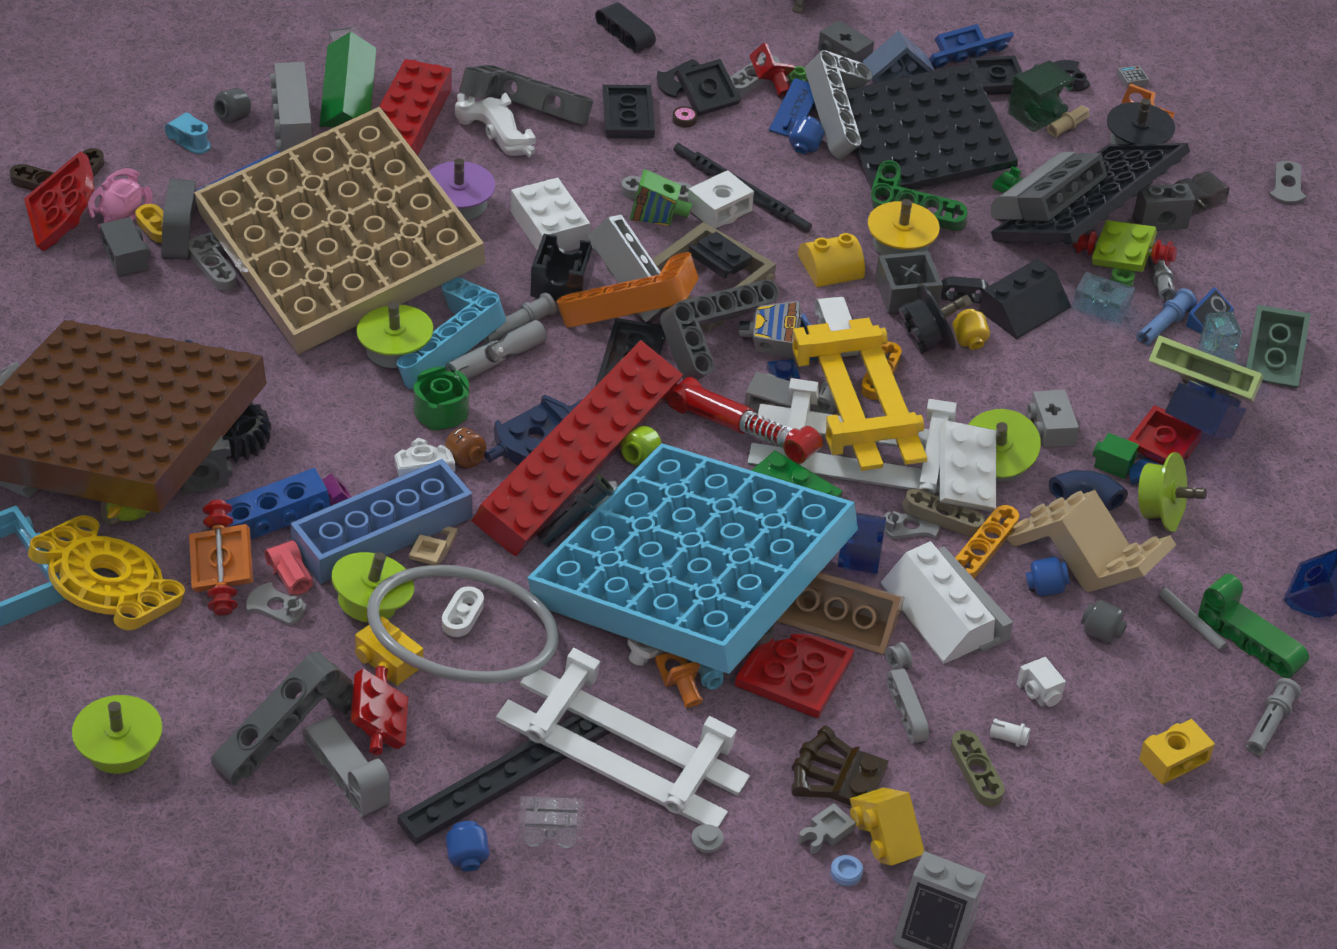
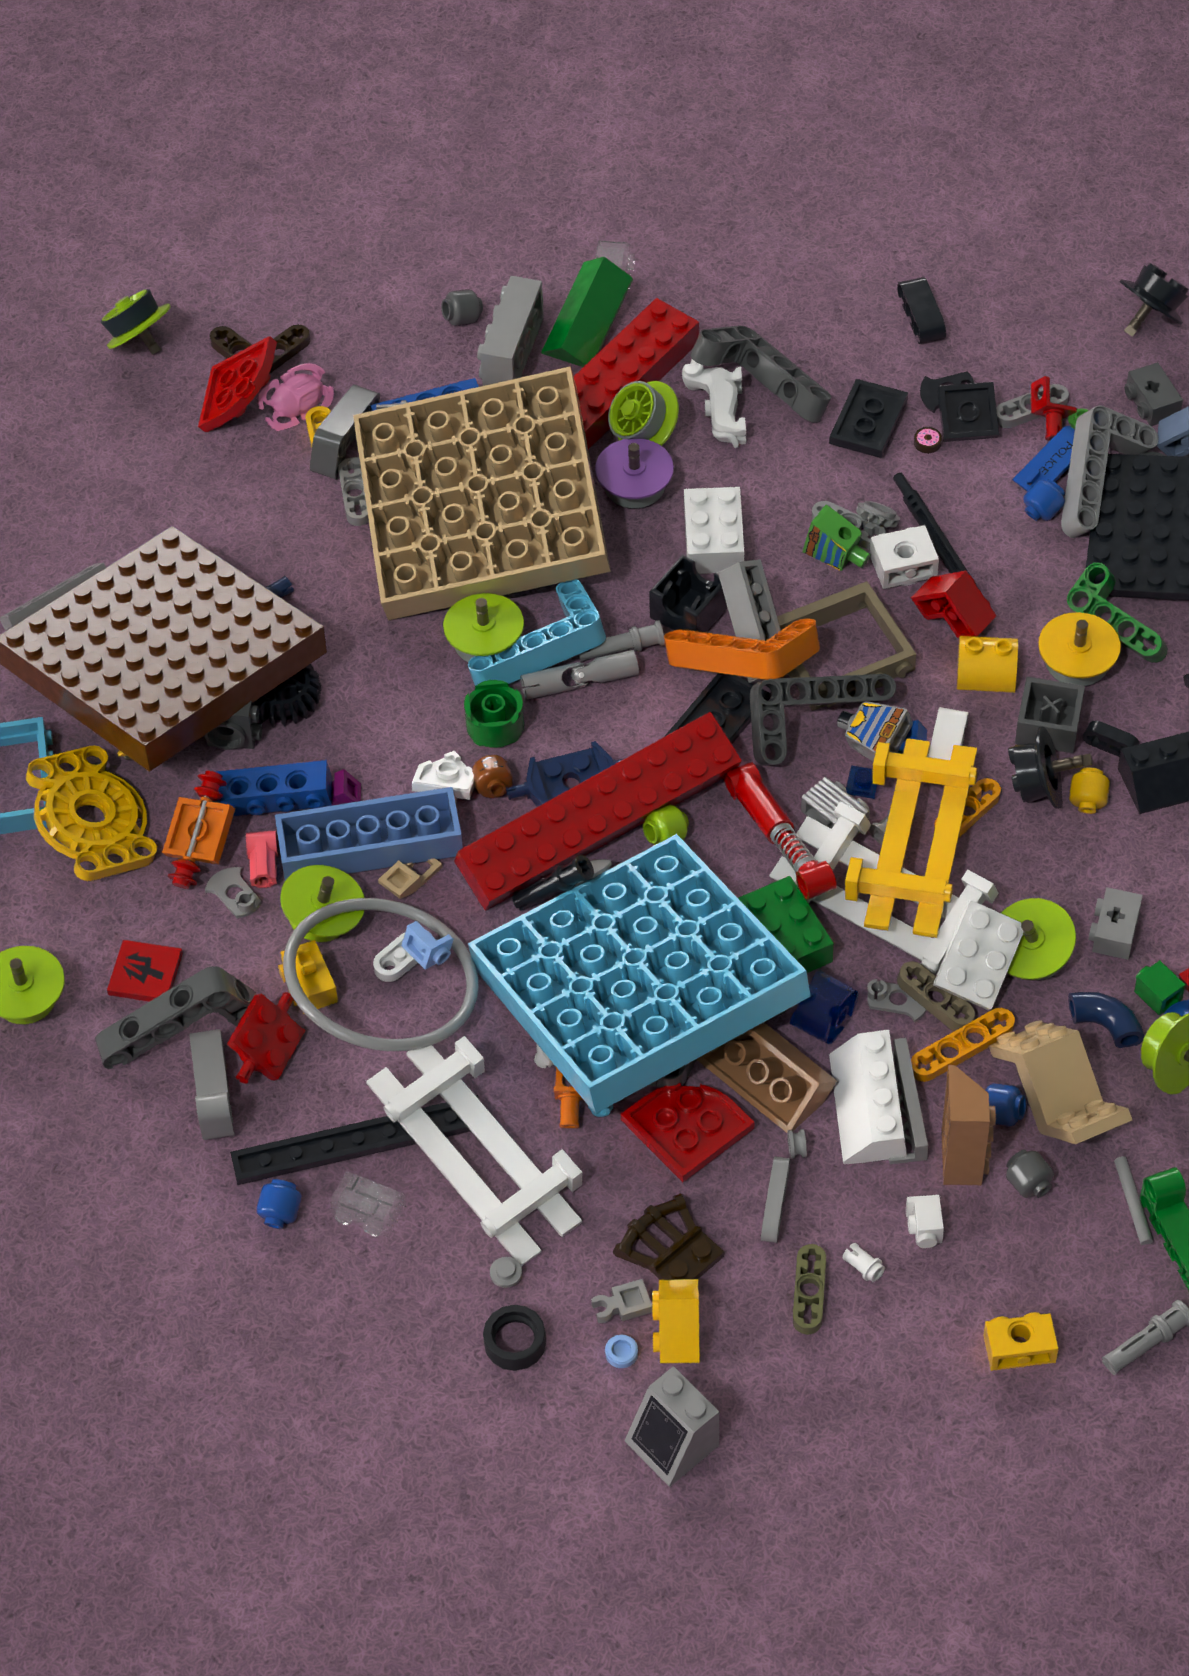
camera: 30 degrees right, 10 degrees up
(124, 246) = (276, 451): dark grey brick -> none
(189, 133) = (403, 331): medium azure piece -> none
(225, 692) = (144, 970): none -> red tile
(445, 138) = (644, 412): none -> lime piece
(491, 589) = (425, 947): none -> light blue bracket
(680, 174) = (878, 513): none -> light grey gear
(720, 255) = (860, 627): black plate -> none
(743, 908) = (521, 1359): none -> black tyre
(785, 217) = (957, 601): none -> red brick
(1045, 592) = (966, 1130): none -> medium nougat slope

